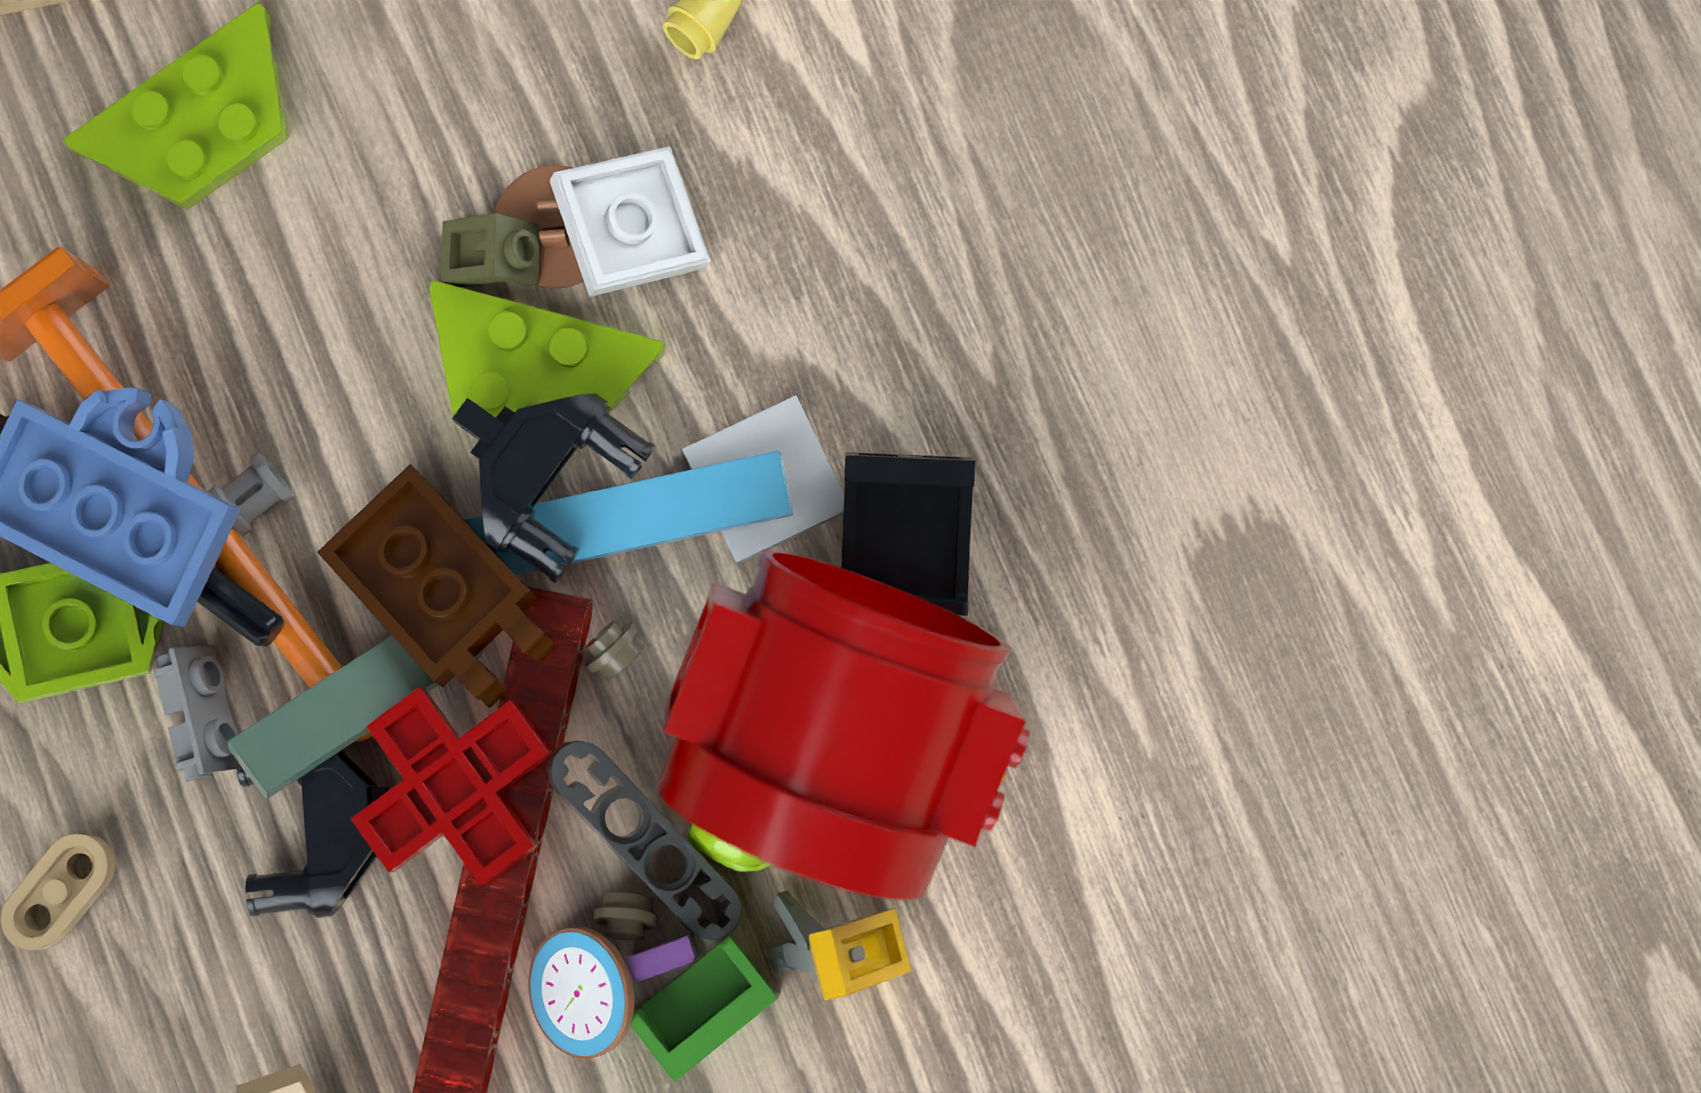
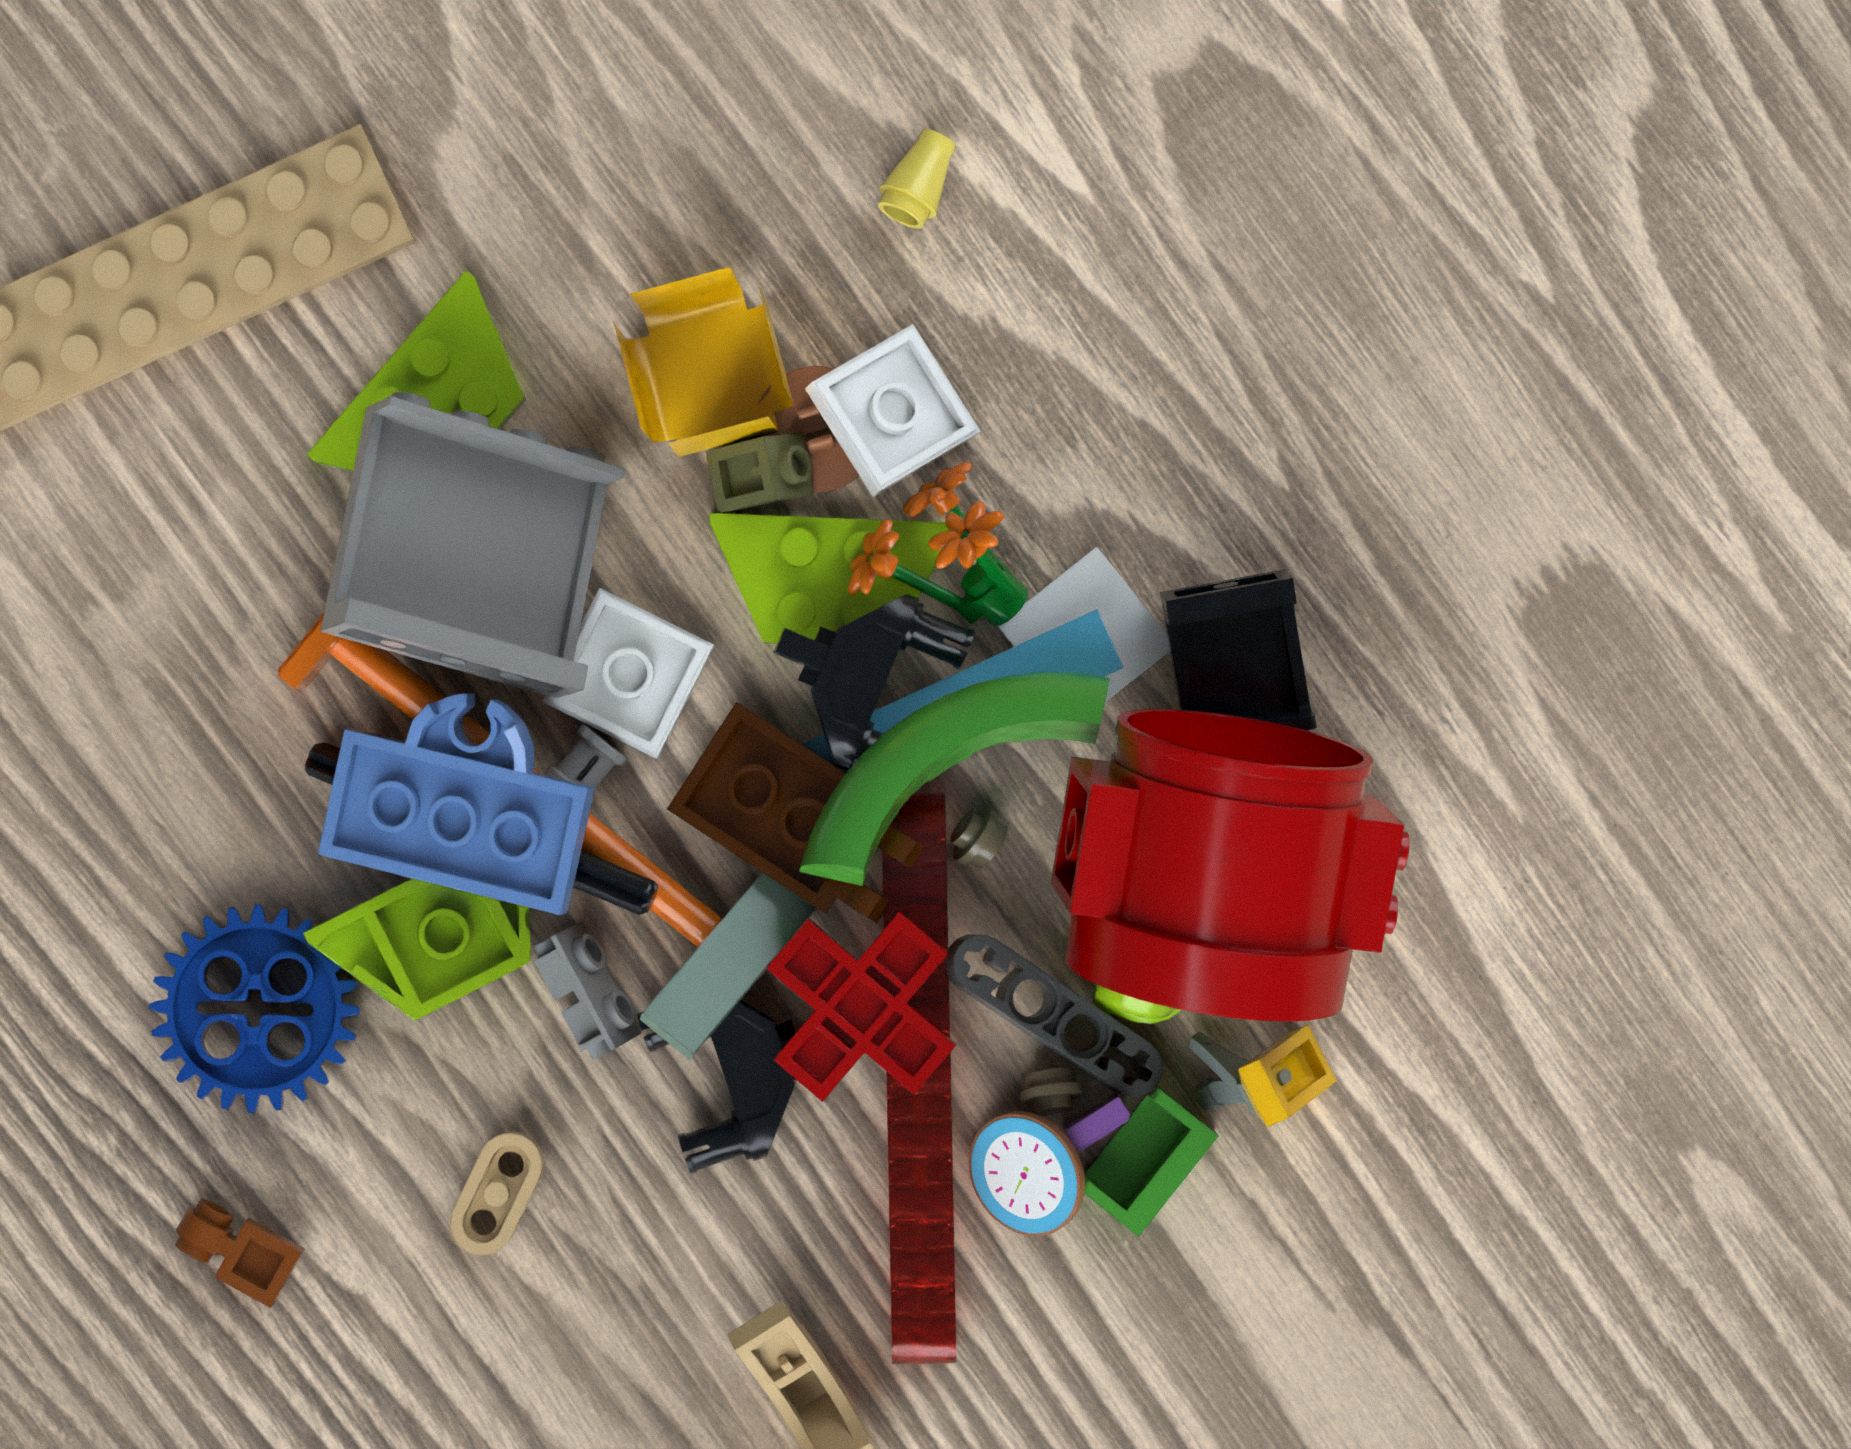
camera: 15 degrees left, 5 degrees up
(179, 248) = (468, 545): none -> light grey panel
(315, 415) = (635, 673): none -> white plate
(463, 138) = (704, 364): none -> yellow piece
(584, 540) = (936, 739): none -> bright green brick
(683, 406) = (988, 583): none -> plant

